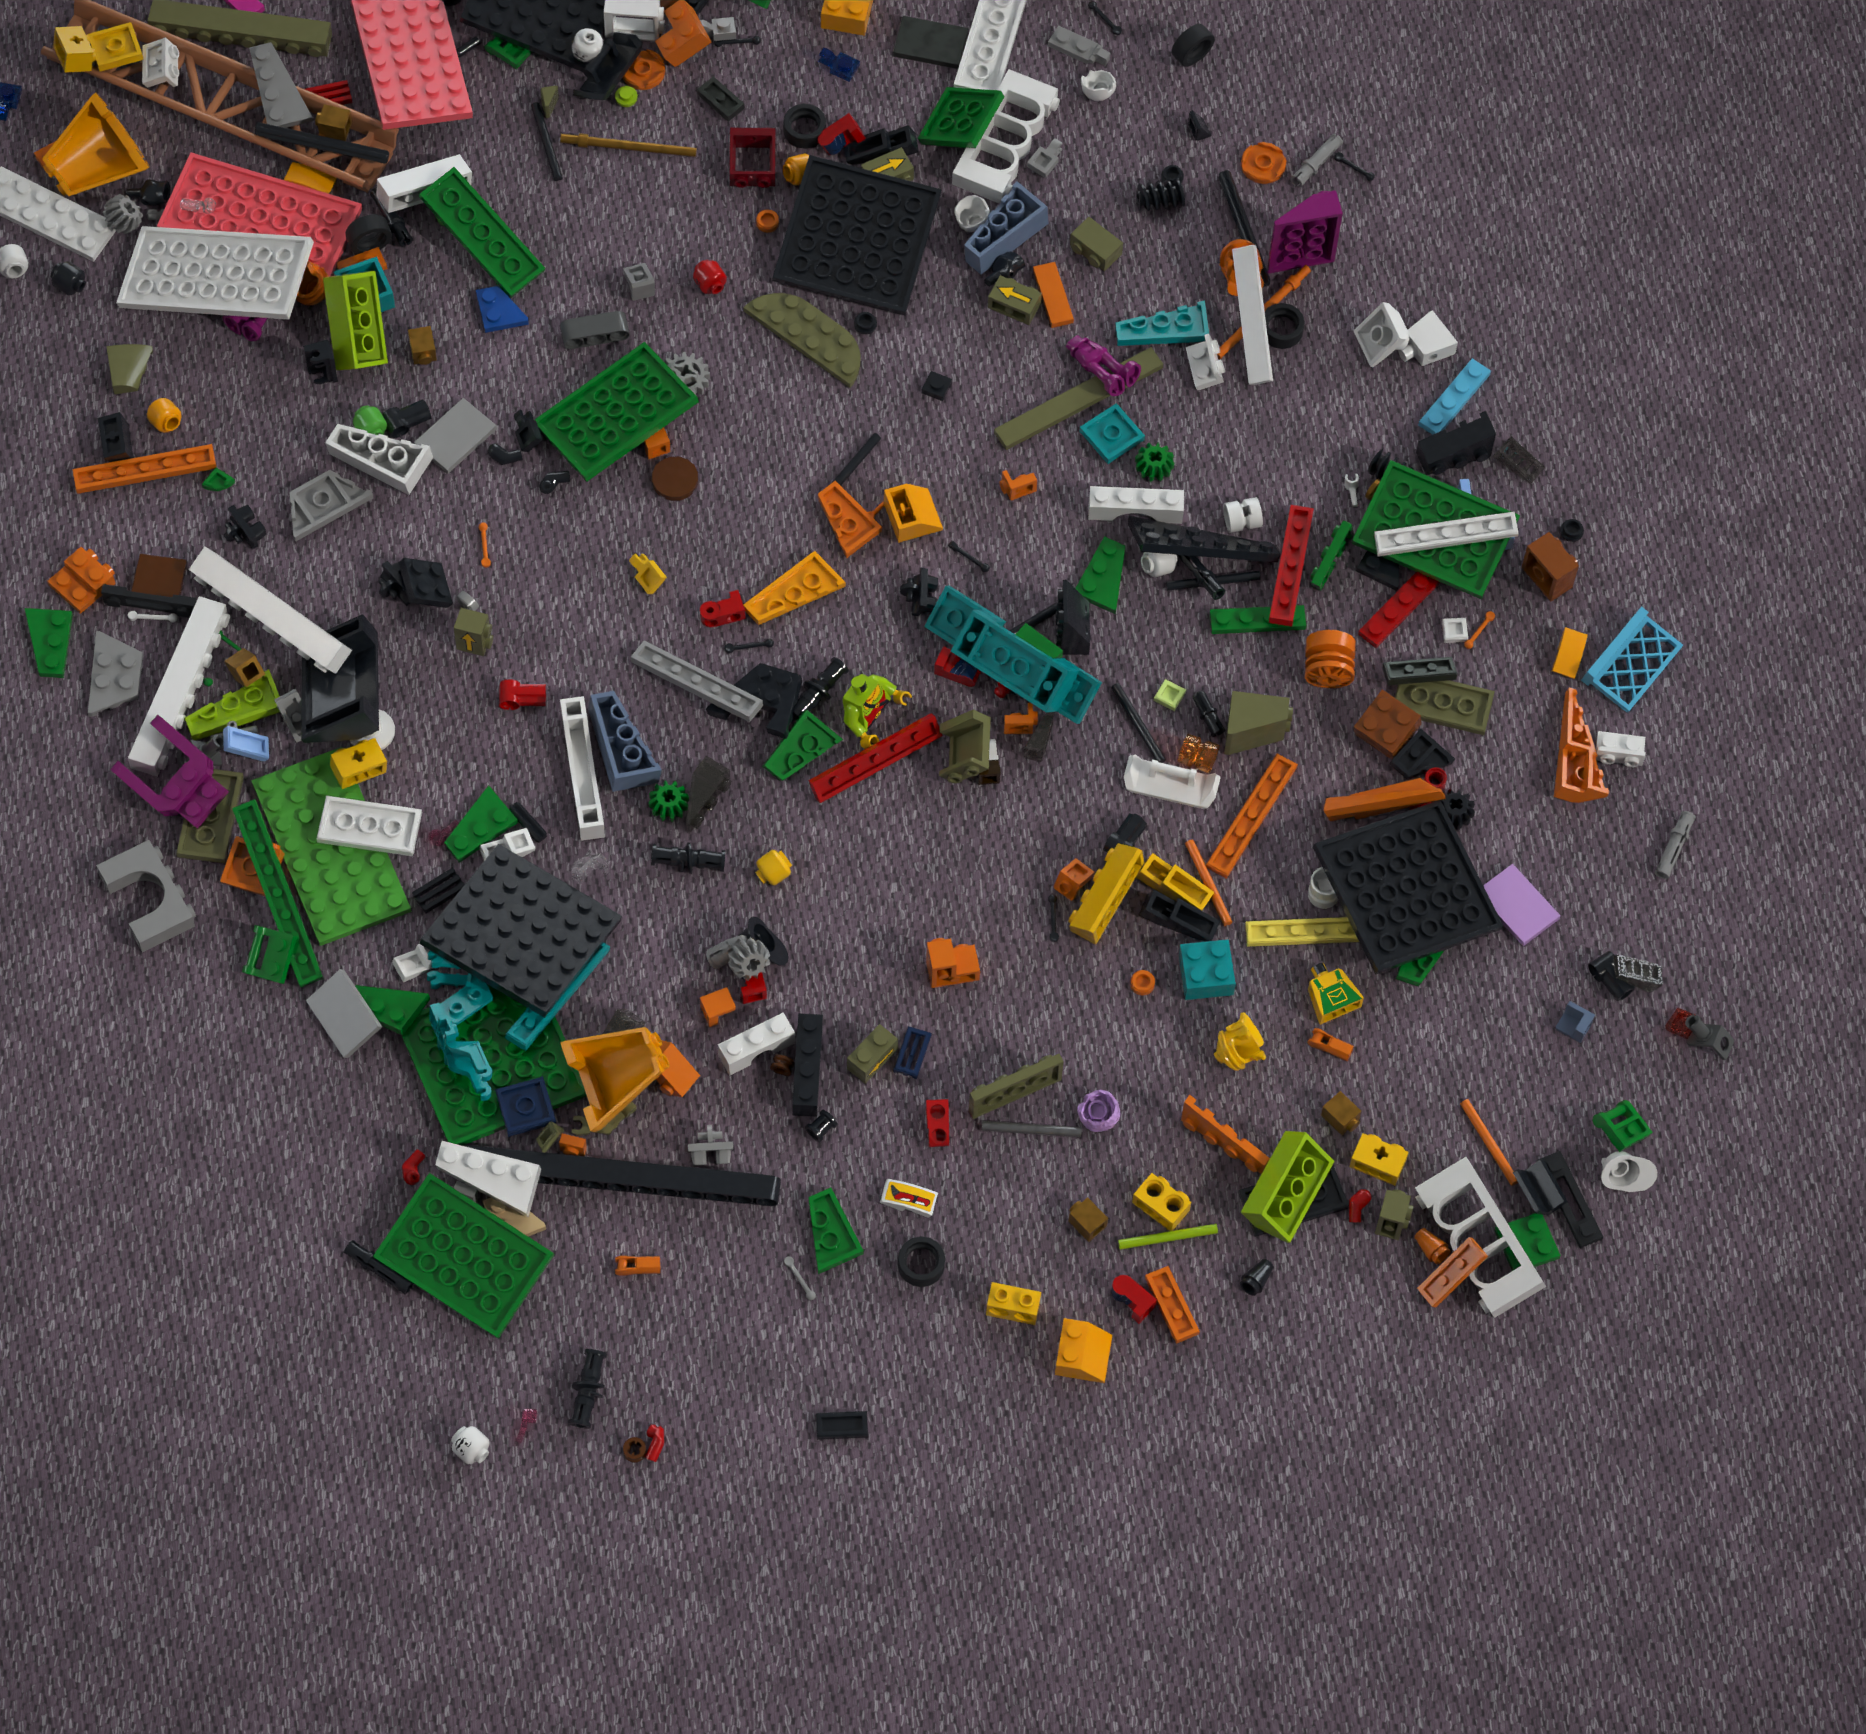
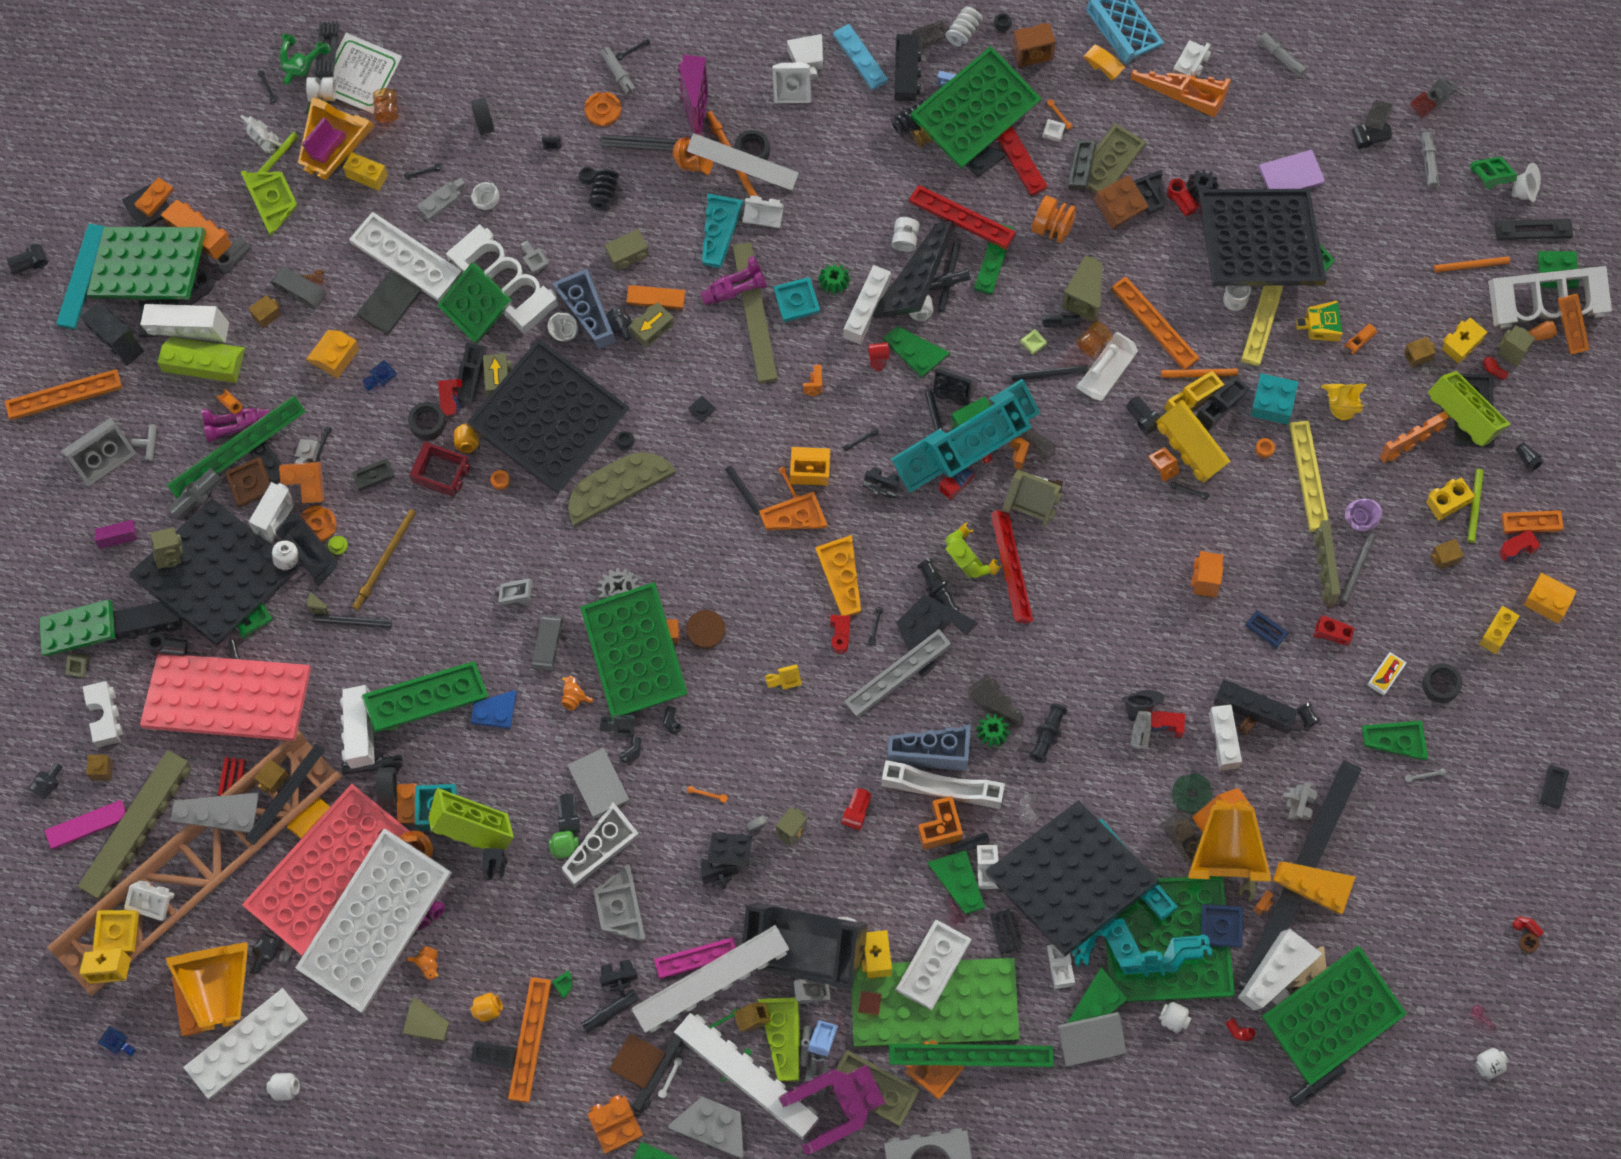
camera: 65 degrees left, 5 degrees up
(68, 278) = (321, 1044): black head -> none
(122, 213) = (279, 979): light grey gear -> none
(193, 343) = (426, 962): none -> orange animal
(196, 528) = (602, 1016): none -> black pin
(206, 206) = (301, 914): clear arm -> none
(276, 957) = (1024, 1075): green plate -> none
(291, 591) = (692, 959): none -> dark pink tile
(302, 776) = (869, 1003): none -> clear red tile
(402, 1092) = (1174, 1017): none -> white head
(422, 345) = (506, 780): pearl gold brick -> none
(536, 786) = (944, 829): none -> orange brick
(546, 374) = (573, 694): none -> orange animal
(549, 1136) = (1255, 916): olive slope -> none
(587, 1388) = (1472, 959): black piece -> none
(612, 1191) = (1317, 885): none -> light orange wing
(643, 1265) = (1379, 885): orange bar -> none
(688, 1026) = (1191, 782): none -> clear green plate
(709, 277) = (537, 539): red head -> none
(716, 1005) = (1183, 755): orange panel -> none
(749, 958) = (1162, 714): light grey gear -> none
(773, 867) = (1078, 673): yellow head -> none
(805, 742) = (980, 609): green wing -> none
(872, 1053) = (1262, 657): olive brick -> none
(1074, 533) = (878, 355): none -> red piece
(1128, 1041) = (1308, 474): none -> light yellow tile
(1321, 574) = (964, 185): green wing -> none
(1352, 486) = (907, 153): white hand -> none
(1382, 800) = (1179, 229): orange wedge -> none
(1446, 534) = (985, 101): white tile -> none
(1540, 1188) = (1522, 243): black panel -> none
(1544, 489) = (963, 26): none -> white piece
(1575, 1022) = (1400, 171): sand blue panel -> none
(1617, 1048) = (1428, 152): none -> light grey pin

